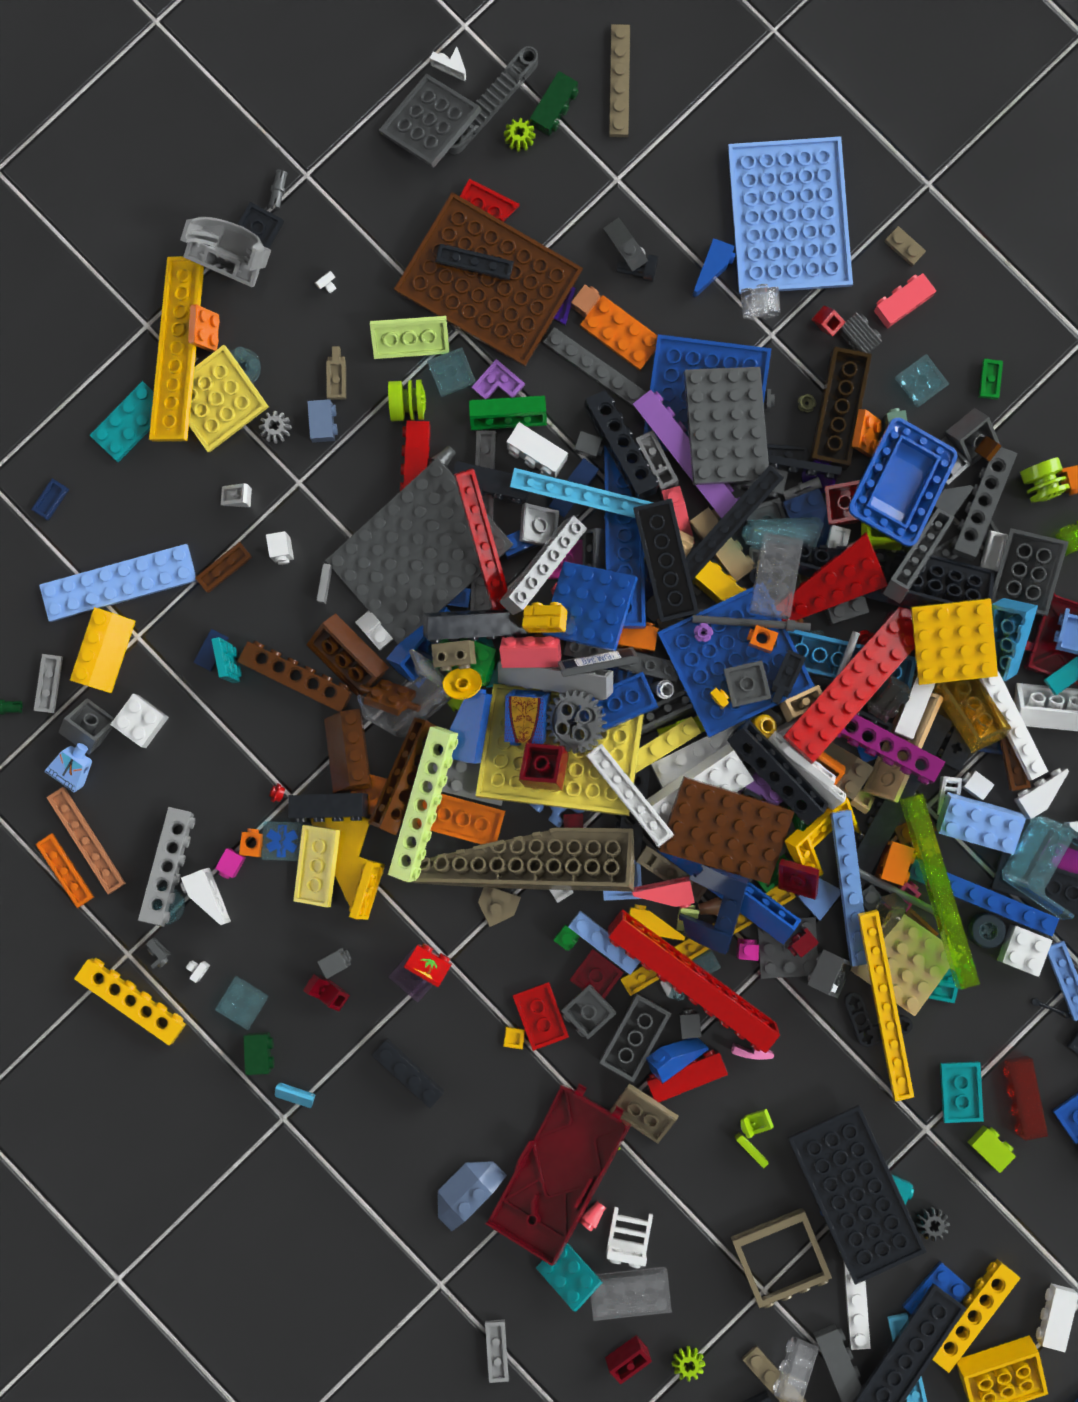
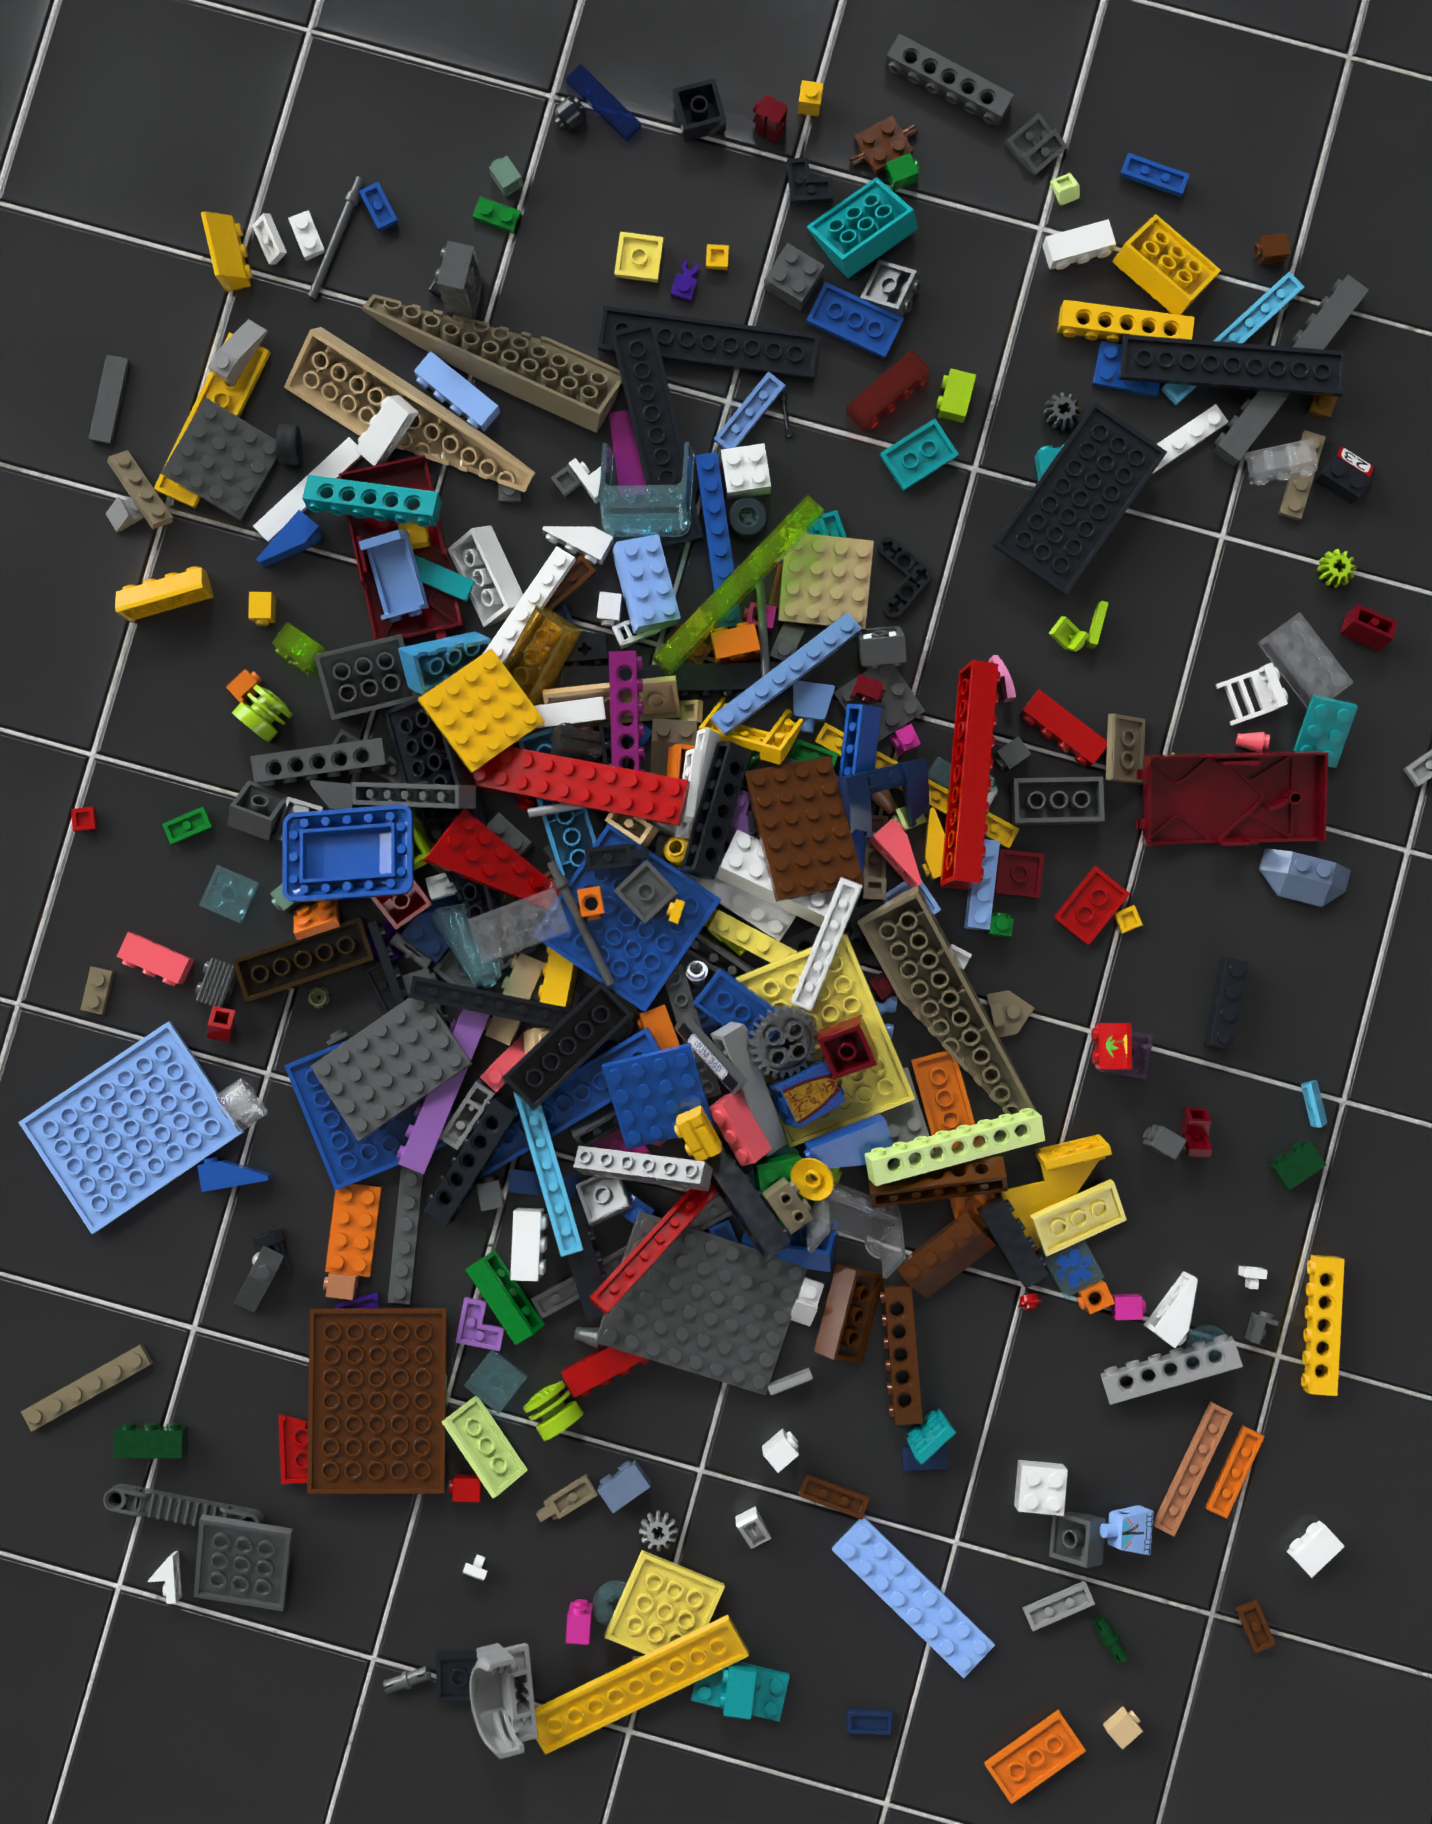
camera: 125 degrees left, 0 degrees up
(102, 650) = (992, 1570): yellow slope -> none
(128, 418) = (739, 1690): none -> teal brick
(203, 328) = (599, 1669): orange plate -> none
(242, 1003) = (1256, 1211): clear light blue plate -> none
(245, 333) = (579, 1622): none -> dark pink brick
(387, 307) = (466, 1488): none -> red brick
(390, 697) = (867, 1244): reddish brown plate -> none
(474, 262) = (368, 1425): black tile -> none
(521, 128) = (196, 1457): lime gear -> none
(588, 1012) = (1060, 861): dark grey plate -> none
(674, 1057) = (1053, 750): blue slope -> none
(703, 637) = (625, 966): medium lavender plate -> none
(769, 1228) = (1161, 564): dark tan window -> none
(798, 879) = (808, 729): dark red plate -> none
(885, 1005) = (879, 575): yellow plate -> none
(891, 910) = (796, 624): clear smoke slope -> none
(988, 448) = (262, 788): reddish brown tile -> none
(993, 550) = (363, 724): white tile -> none
(1039, 306) = (84, 819): none -> red plate

